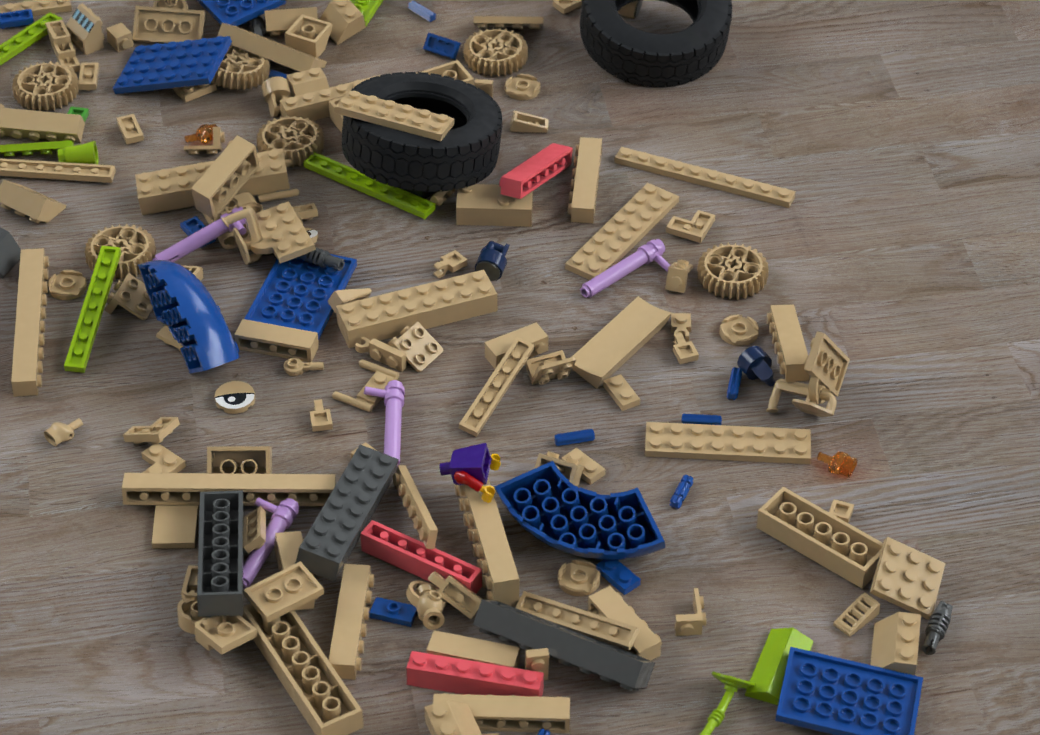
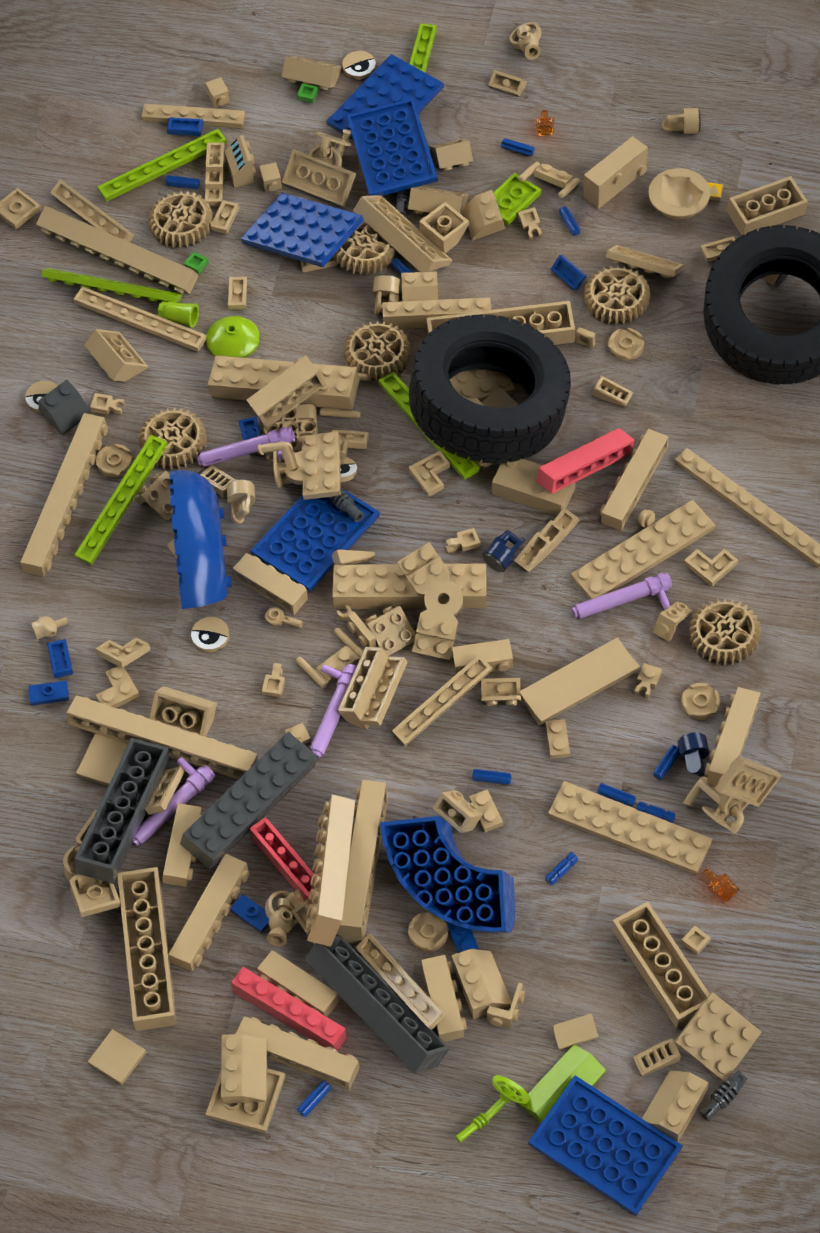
camera: 25 degrees right, 15 degrees up
(32, 59) = (182, 182): none -> blue axle
(38, 241) = (105, 403): none -> tan plate
(88, 454) = (60, 658): none -> blue plate
(89, 486) = (48, 693): none -> blue plate
(139, 160) = (233, 337): none -> lime dish
(203, 134) = (303, 319): clear orange piece -> none
(214, 278) = (240, 498): none -> tan piece
(218, 139) = (310, 330): tan bracket -> none
(283, 591) = (156, 871): tan plate -> none
(386, 17) = (530, 220): none -> tan plate
(387, 220) = (426, 472): none -> tan plate
(394, 115) = (455, 378): tan plate -> none
(416, 507) = (308, 818): tan plate -> none
(422, 395) = (371, 688): none -> tan brick
(461, 325) = (438, 622): none -> tan plate
(467, 540) = (330, 870): none -> tan brick
(471, 468) = (365, 797): dark purple torso -> none
(528, 244) = (547, 540): none -> tan slope
(537, 661) = (344, 1017): tan plate -> none
(613, 205) = (646, 518): none -> tan plate
(651, 602) = (480, 981): none -> tan slope
(683, 350) = (636, 711): tan plate -> none
(750, 422) = (656, 811): none -> blue axle
(766, 617) = (574, 1031): none -> tan slope

